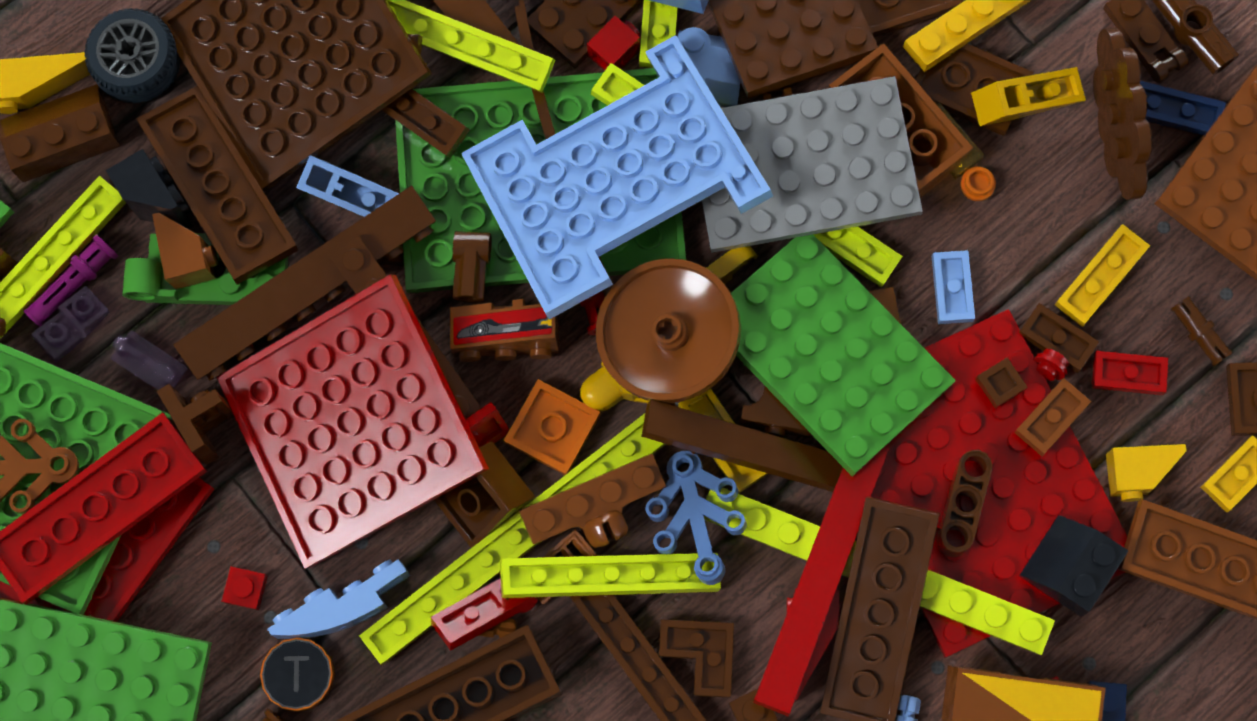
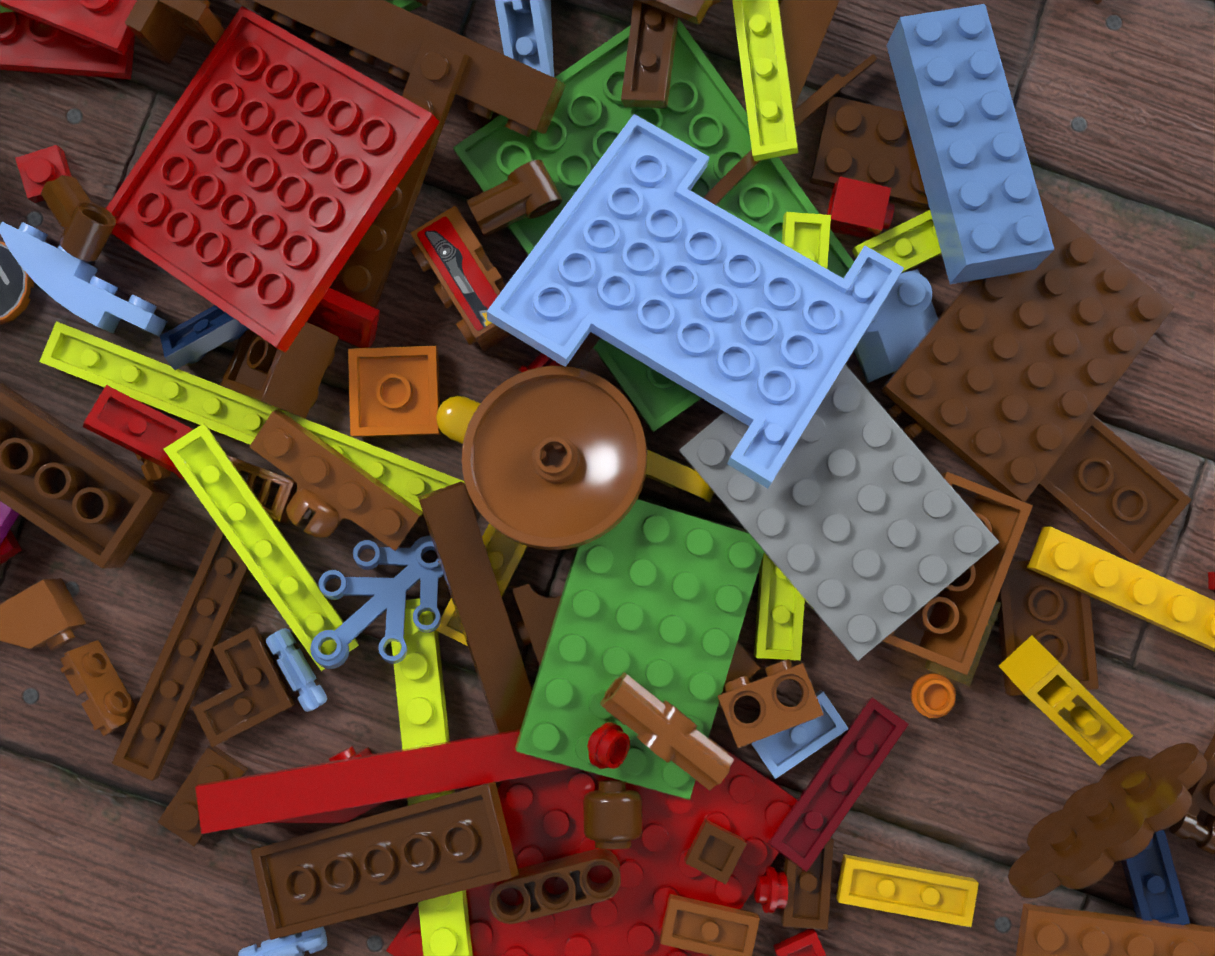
camera: 50 degrees right, 10 degrees up
(302, 573) = (83, 222): none -> reddish brown piece
(430, 536) = (199, 335): none -> dark blue plate
(709, 609) = (296, 669): none -> light blue axle
(886, 405) = (608, 746): none -> red plate
(898, 361) = (667, 731): none -> dark orange piece
(928, 291) = (773, 715): none -> dark orange brick
(936, 436) = (612, 815): none -> reddish brown head
(1002, 278) = (837, 784): none -> dark red plate

